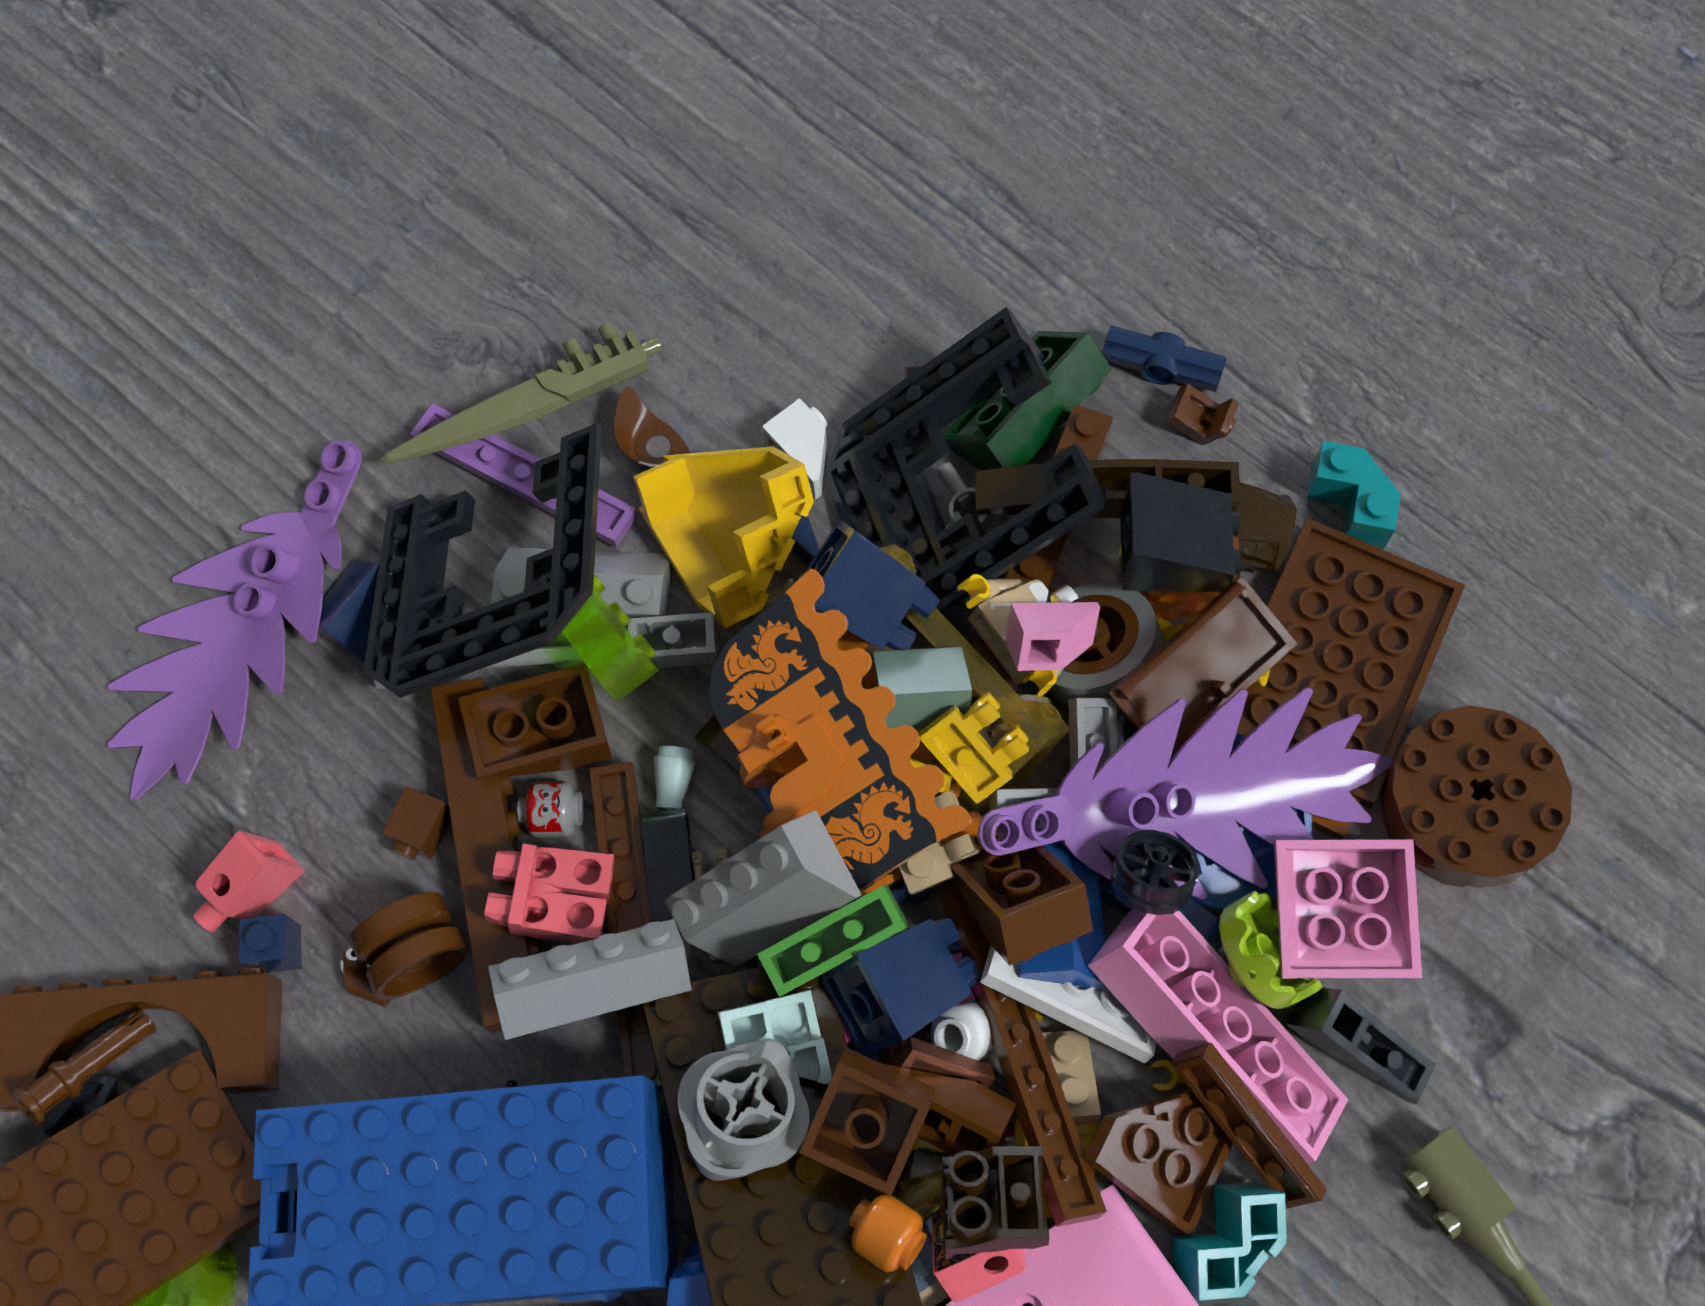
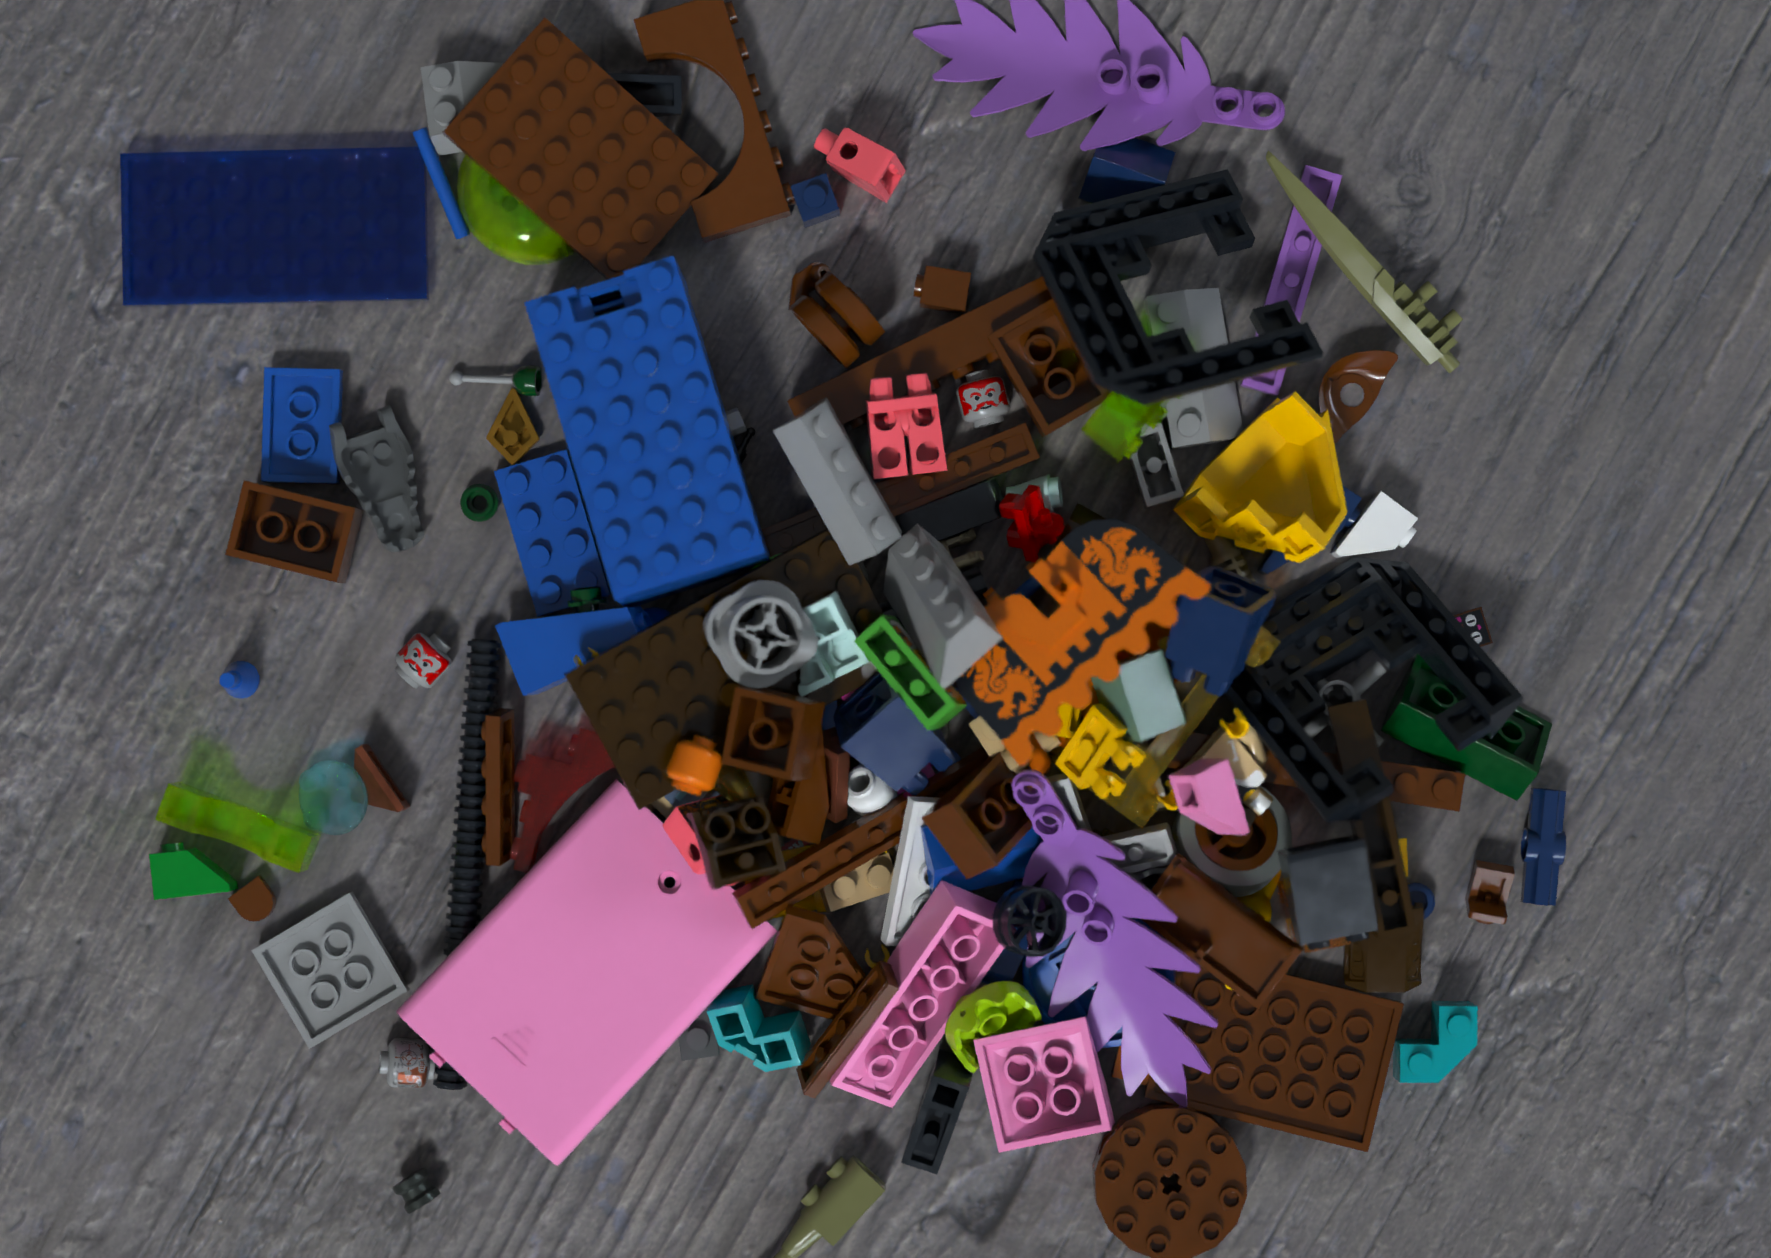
camera: 75 degrees right, 20 degrees up
(67, 1077) = (669, 78): reddish brown pin -> none
(704, 776) = (1033, 522): none -> red hips

